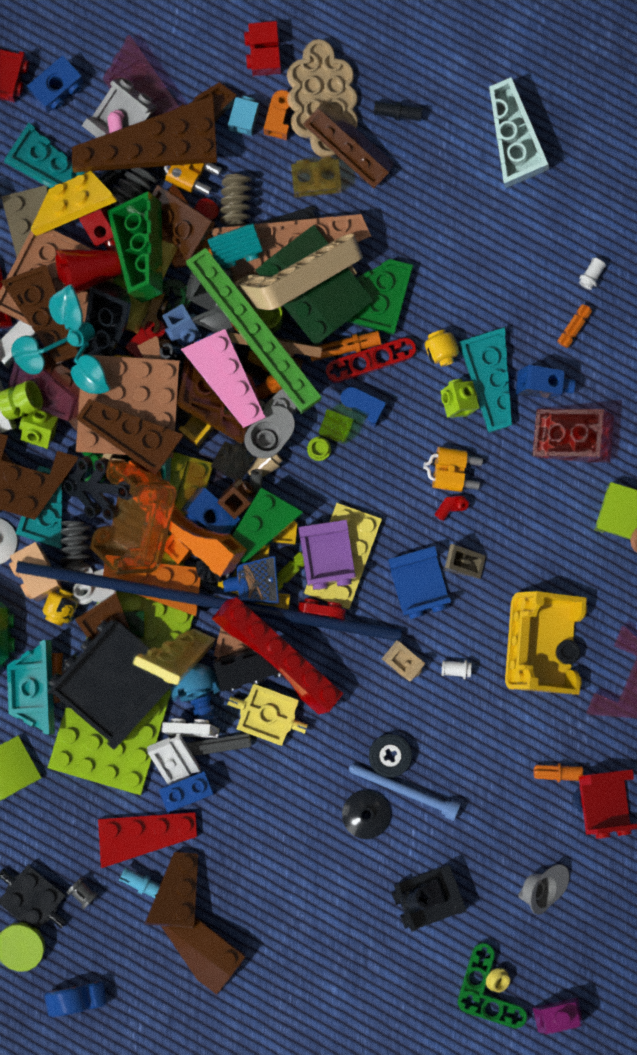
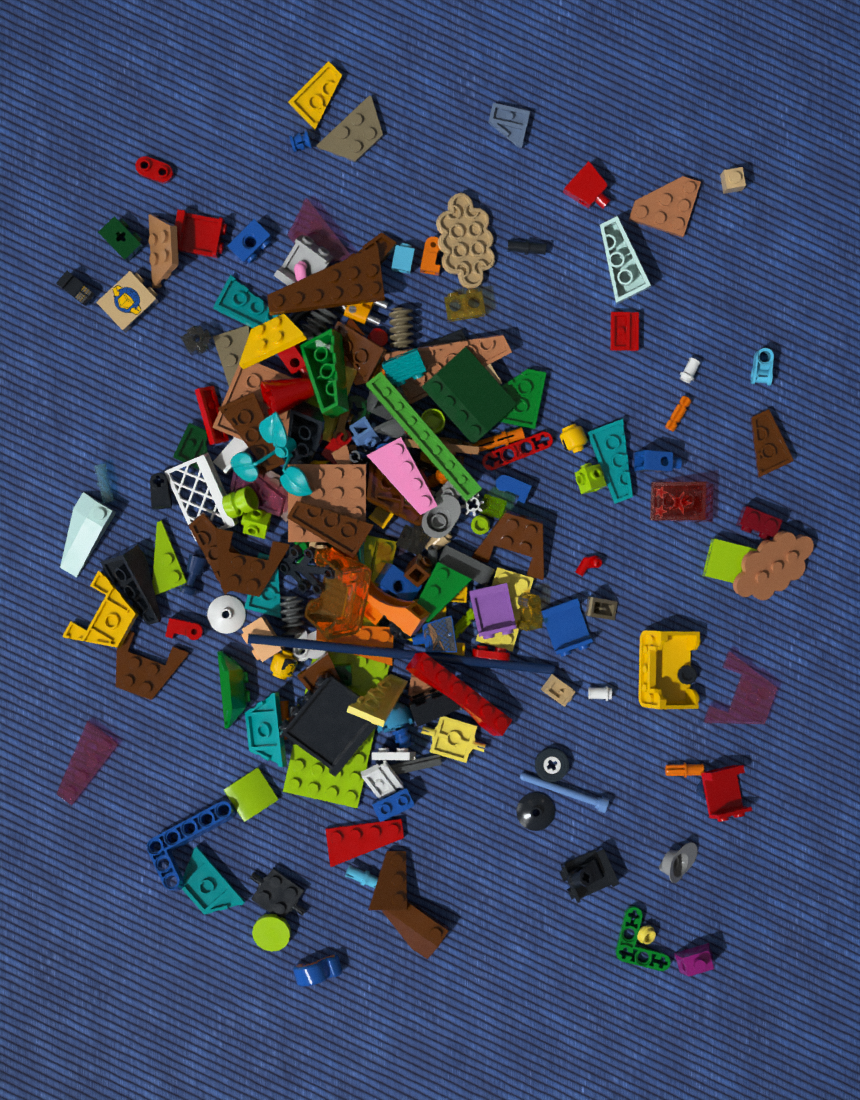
camera: 10 degrees left, 5 degrees up
(82, 893) = (317, 887): dark grey bush -> none
(263, 48) = (416, 203): red piece -> none
(301, 276) = (459, 391): tan beam -> none
(311, 429) = (473, 509): none -> white gear
(312, 505) = (466, 565): none -> dark grey beam
(349, 144) = (489, 277): reddish brown panel -> none
(366, 463) = (518, 535): none -> reddish brown wing
(374, 560) = (529, 612): none -> clear yellow leg
(450, 469) = (585, 535): light orange piece -> none
(477, 43) = (587, 187): none -> red torso
(513, 220) = (624, 331): none -> red plate
(575, 72) = (667, 207): none -> nougat plate

